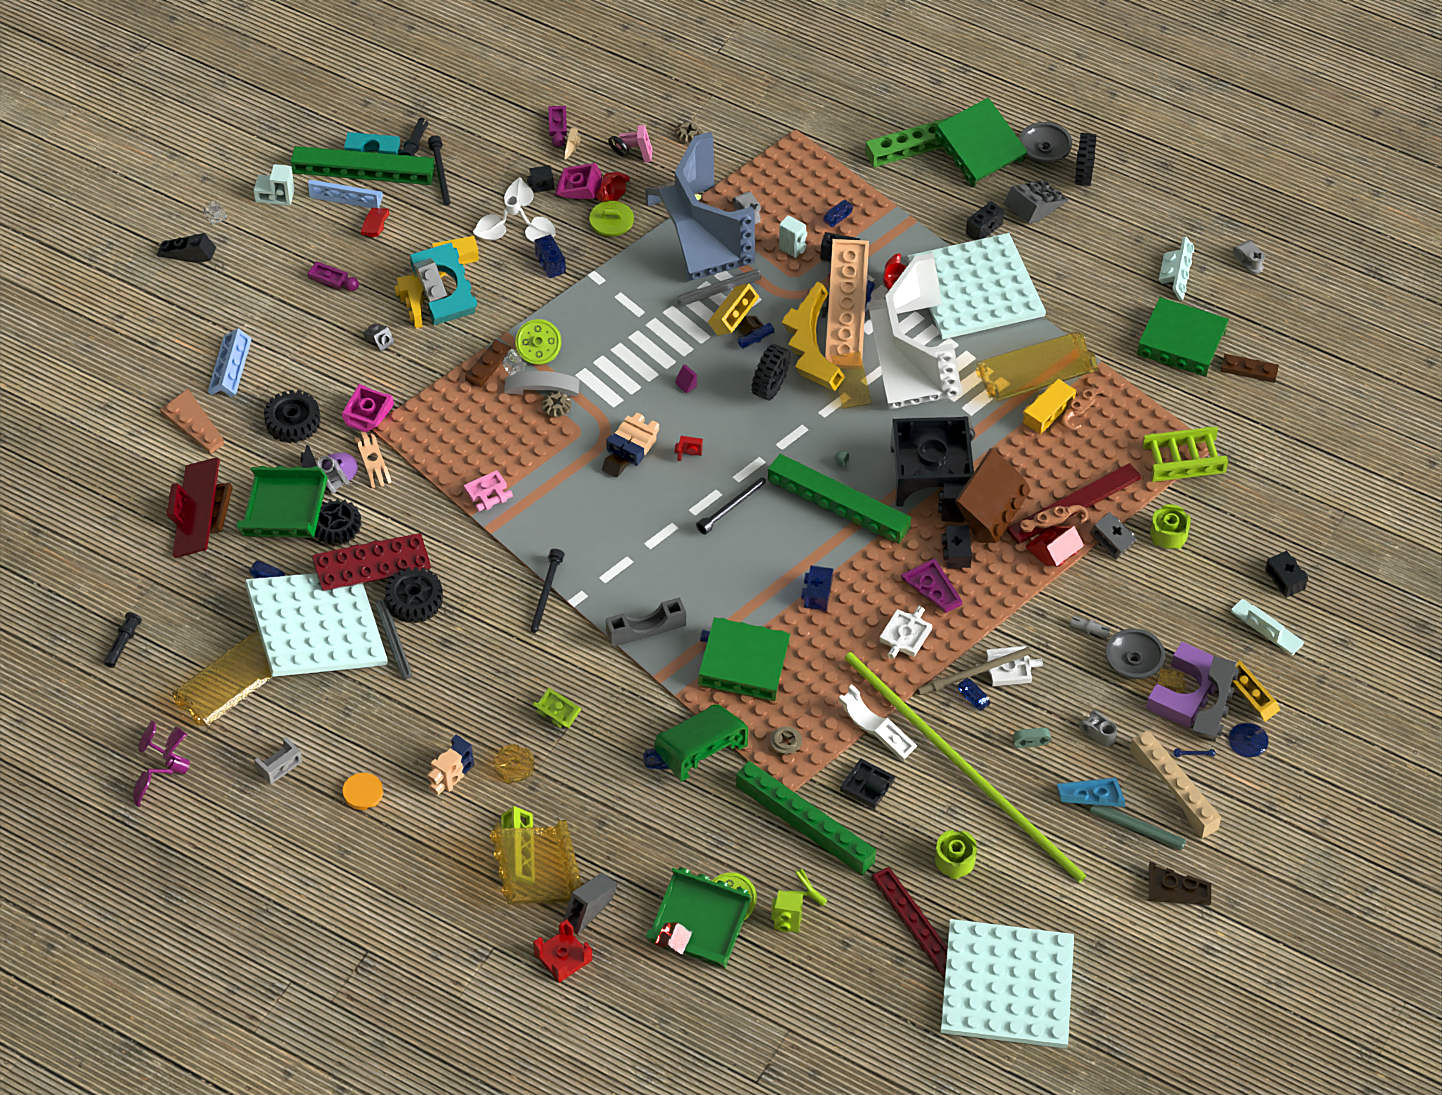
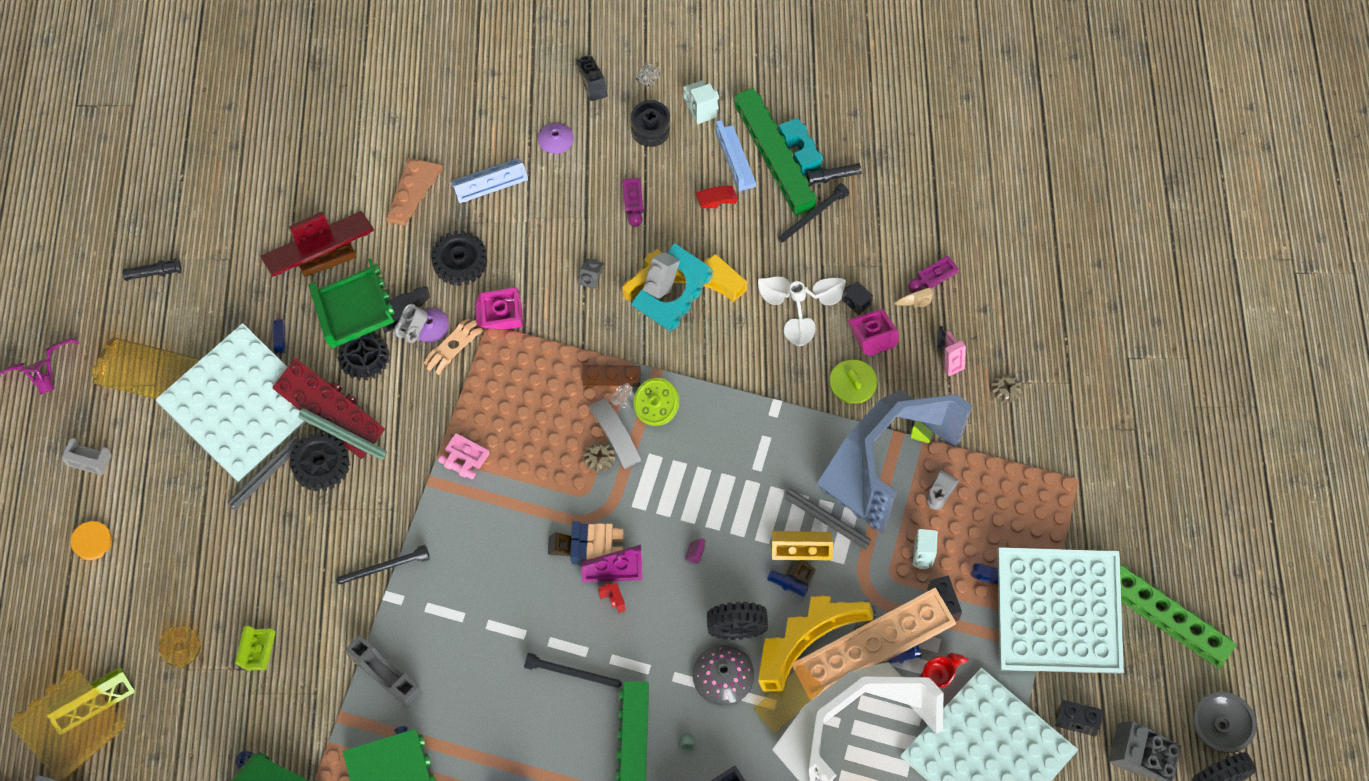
camera: 60 degrees right, 10 degrees up
(224, 303) = (555, 144): none -> medium lavender dish
(269, 229) = (650, 123): none -> black wheel
(404, 562) = (342, 434): none -> sand green axle
(451, 766) = (142, 597): light nougat hips -> none
(550, 256) = (769, 355): clear blue brick -> none
(612, 186) = (888, 360): red hair -> none
(665, 432) = (616, 566): none -> magenta wing
(801, 419) = (723, 687): none -> dark grey dish
(897, 185) = (1060, 610): none -> light aqua plate
(979, 141) = (1175, 658): green panel -> none

